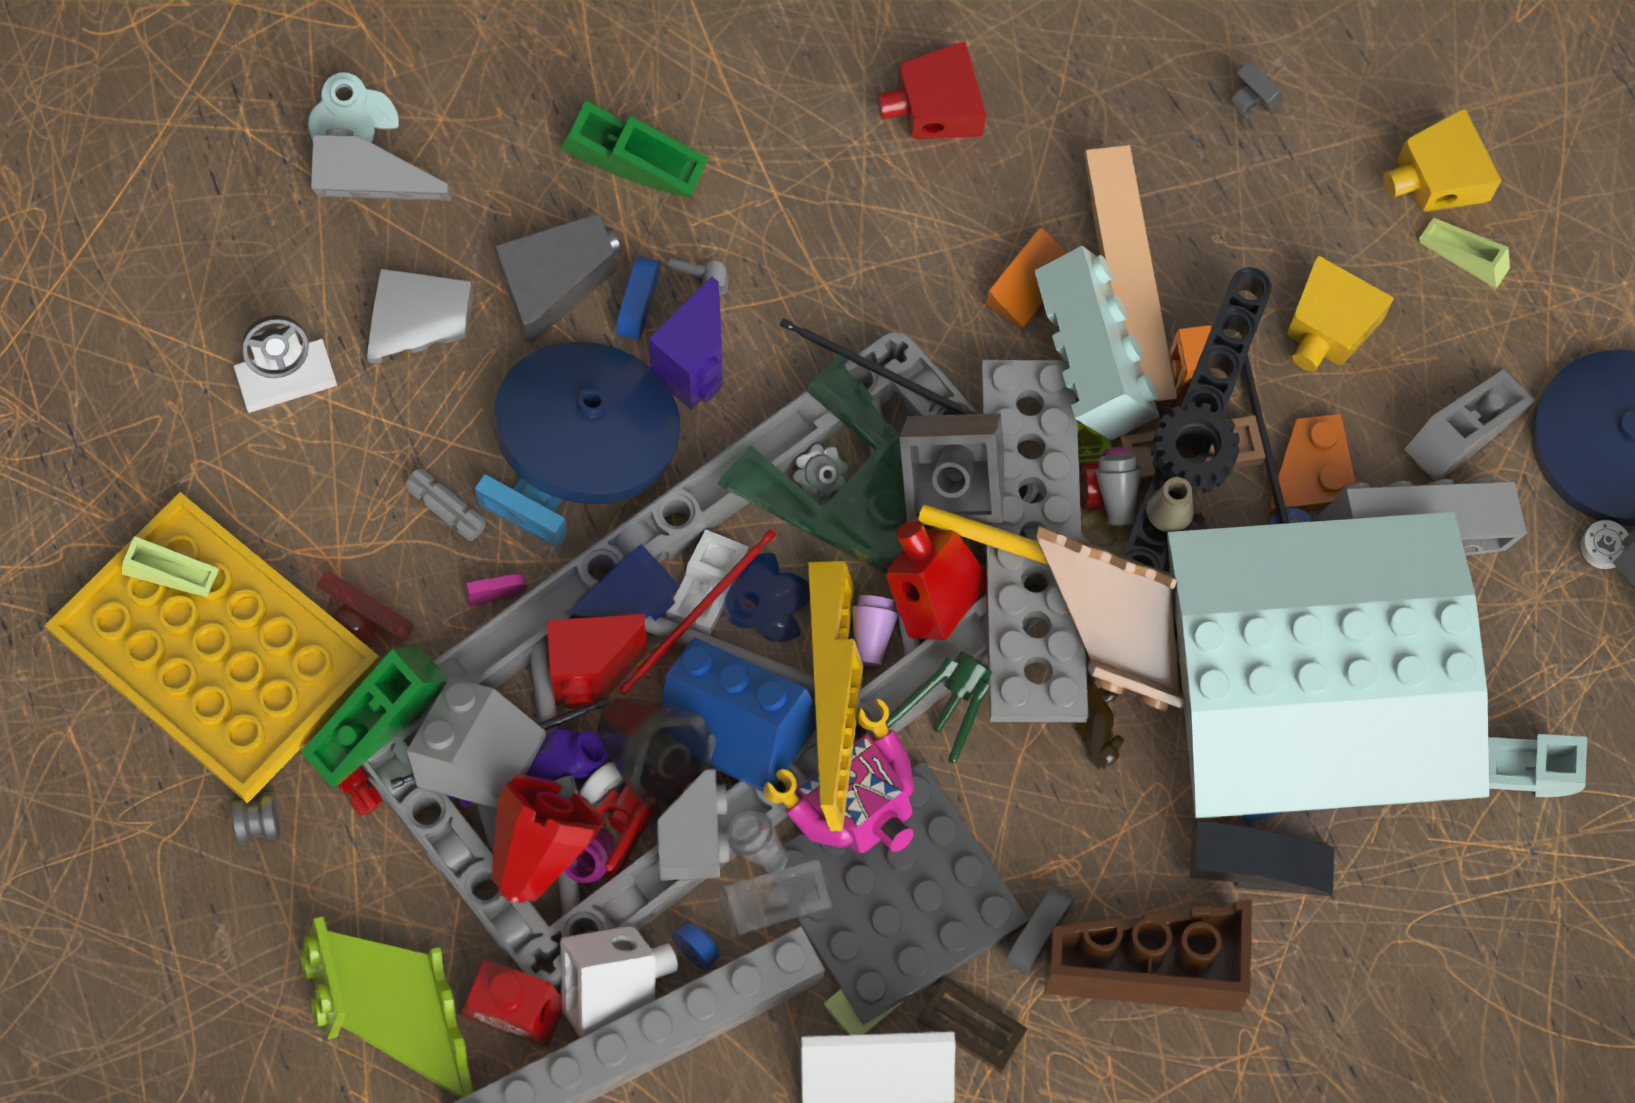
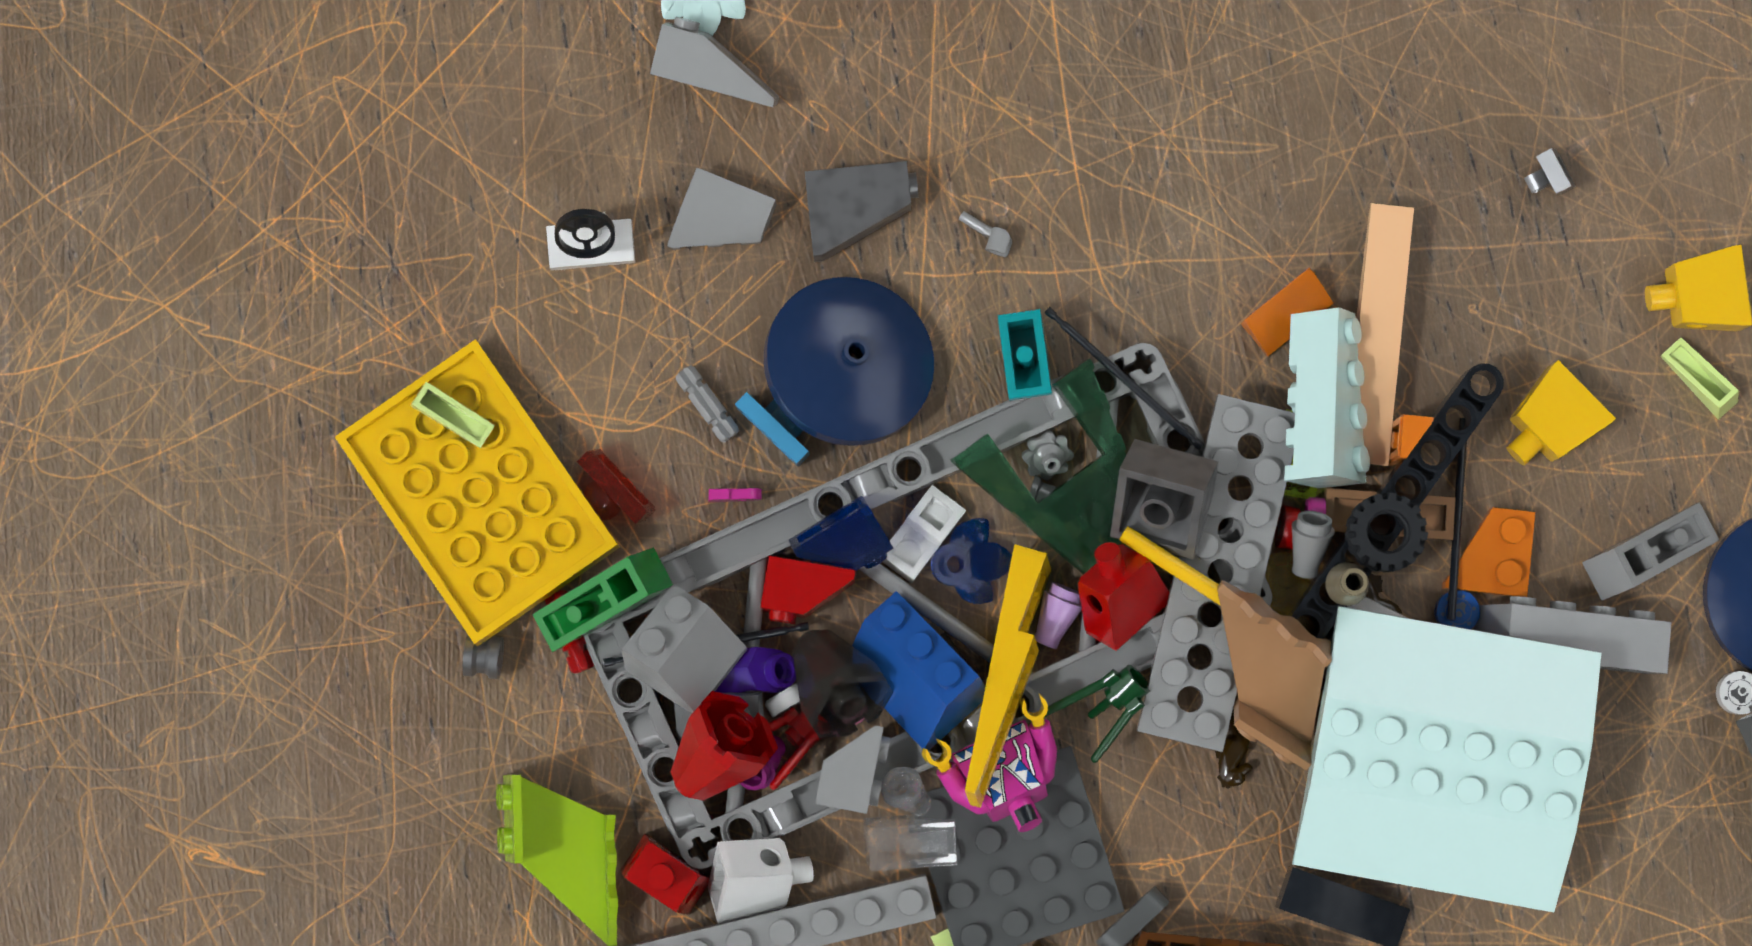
camera: 20 degrees right, 15 degrees up
(633, 151) = (954, 98): green slope -> none
(638, 298) = (924, 247): blue beam -> none
(689, 347) = (960, 315): dark purple slope -> none
(696, 612) = (905, 564): red piece -> none
(696, 945) = (834, 861): blue tile -> none
(769, 368) = (1025, 354): none -> teal slope
(937, 96) = (1249, 108): red torso -> none
(1546, 765) = (1609, 884): light aqua brick -> none

